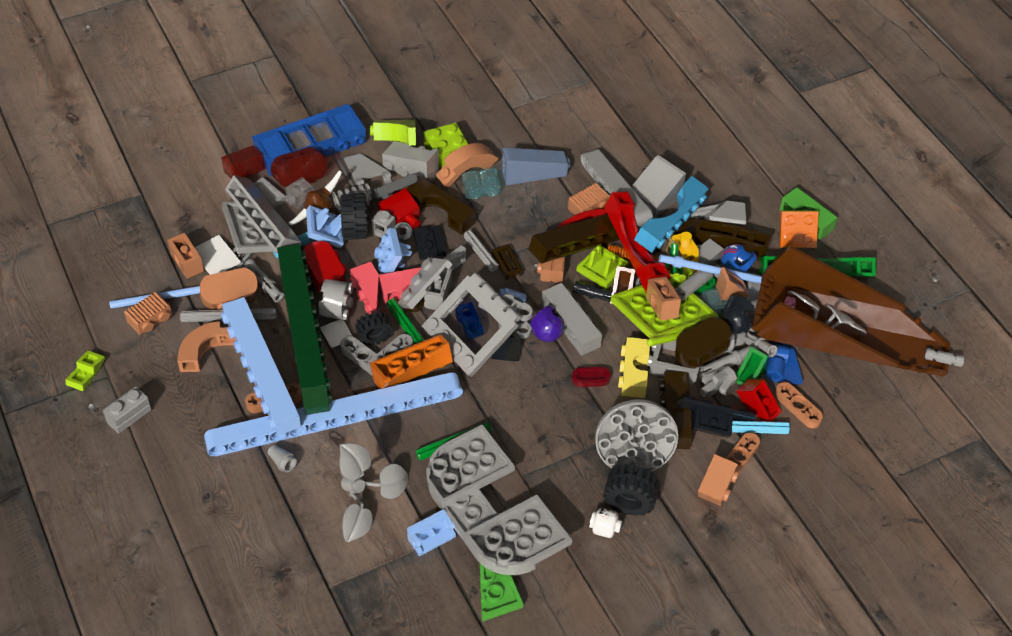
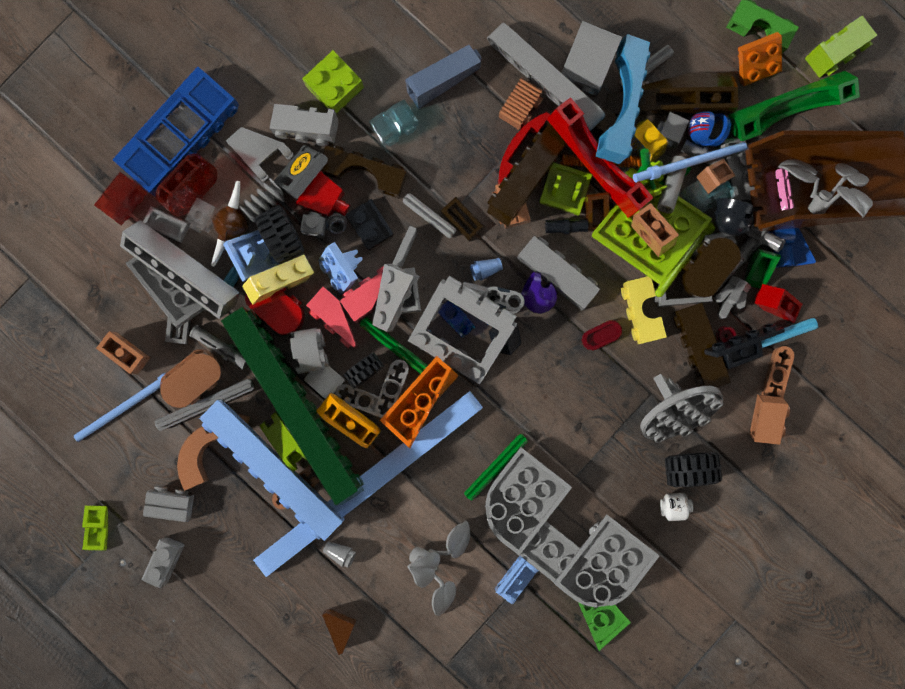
camera: 20 degrees left, 35 degrees up
(148, 313) = (122, 438): nougat brick -> none
(157, 372) = (168, 505): none -> light grey brick
(216, 255) = (153, 334): white sticker -> none
(251, 516) = (339, 628): none -> reddish brown slope
(282, 353) = (282, 441): none -> lime piece
(325, 237) = (284, 275): none -> light yellow arch
(343, 354) = (348, 420): none -> light orange brick
(394, 130) = (270, 84): lime arch -> none
(463, 159) = (365, 100): nougat arch -> none
(728, 212) = (678, 72): light grey slope -> none
(800, 413) = (808, 277): nougat beam -> none
(870, 241) = (841, 47): none -> lime wedge

